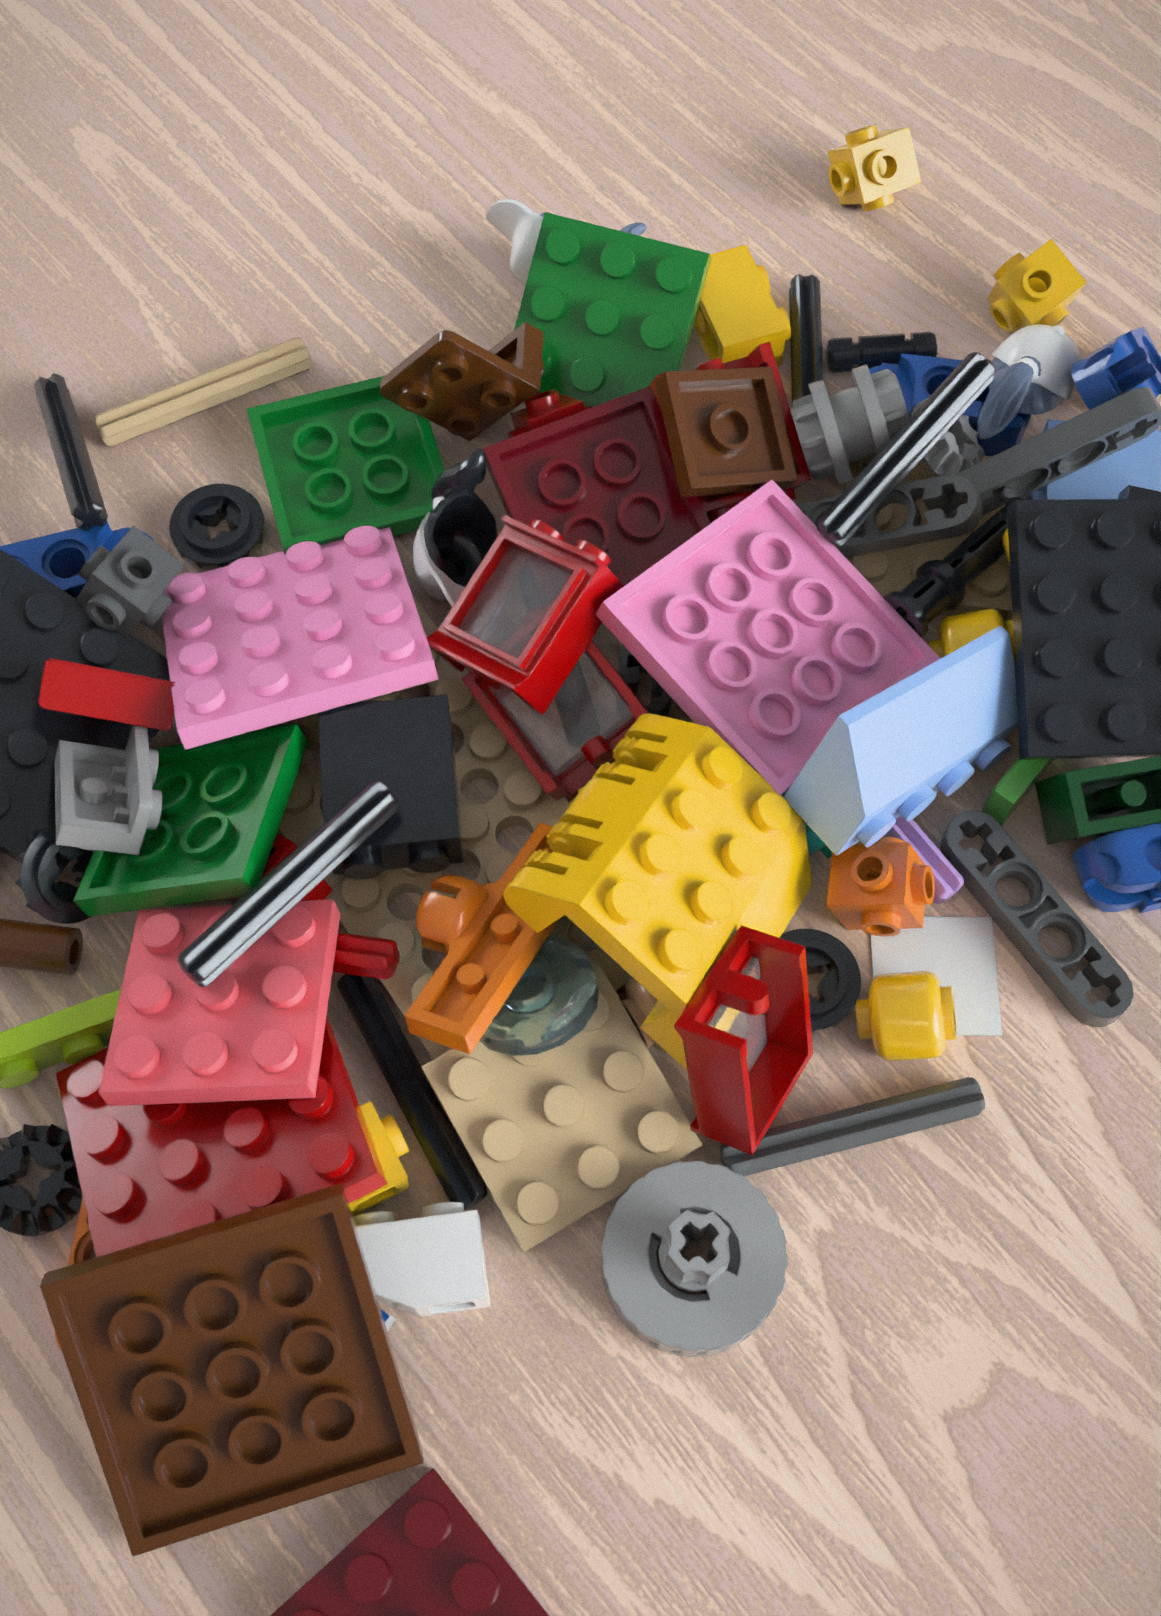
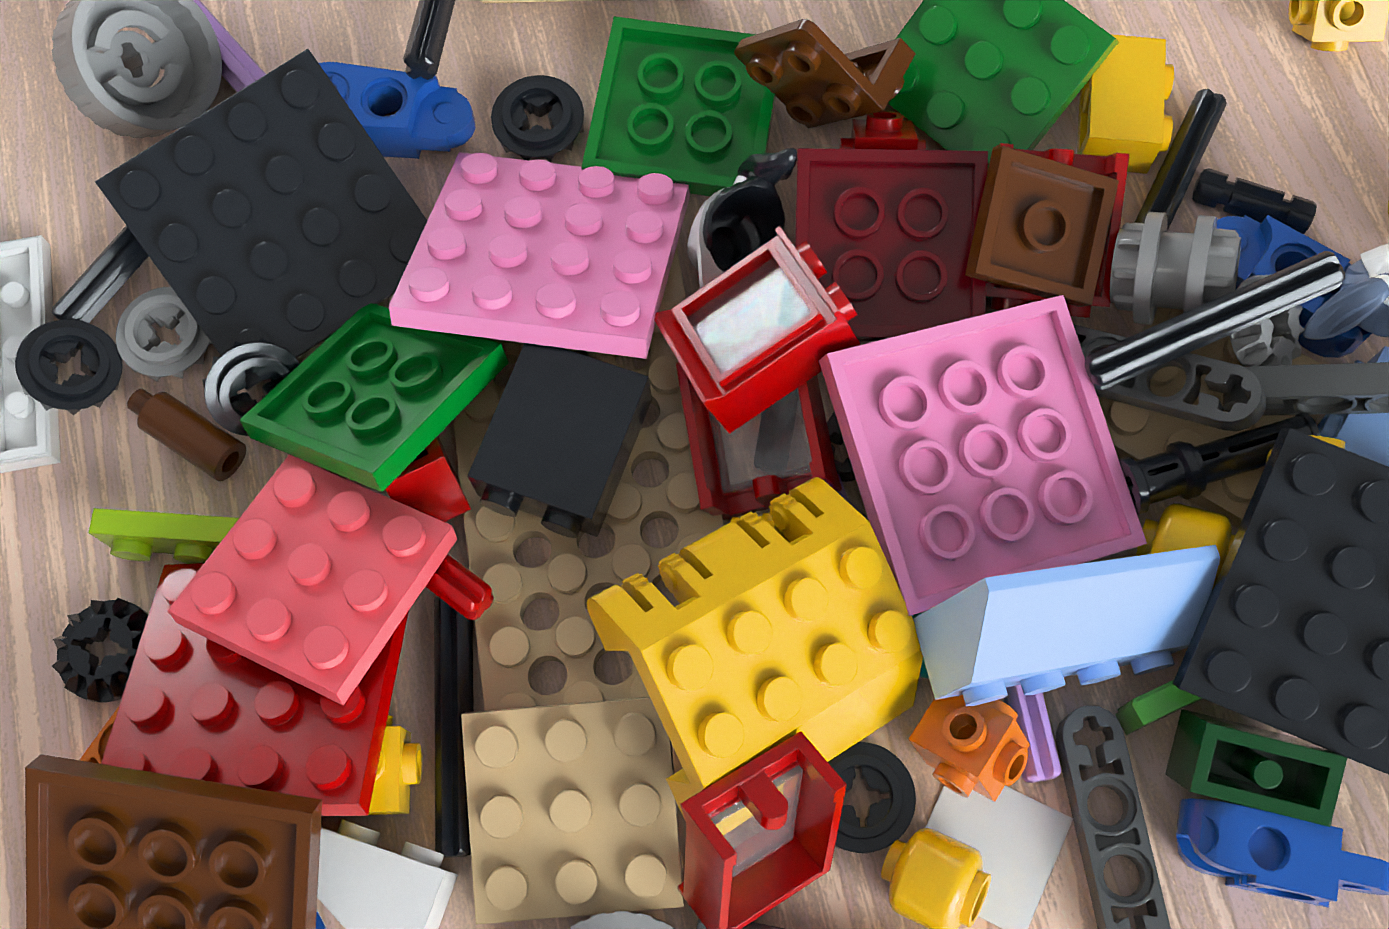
camera: 30 degrees right, 5 degrees up
(106, 694) = (348, 243): red slope -> none
(106, 794) = (307, 335): light grey bracket -> none
(128, 583) = (421, 145): dark grey brick -> none
(287, 884) = (415, 495): axle -> none
(484, 953) = (558, 640): orange plate -> none
(547, 1003) = (584, 699): clear light blue tile -> none

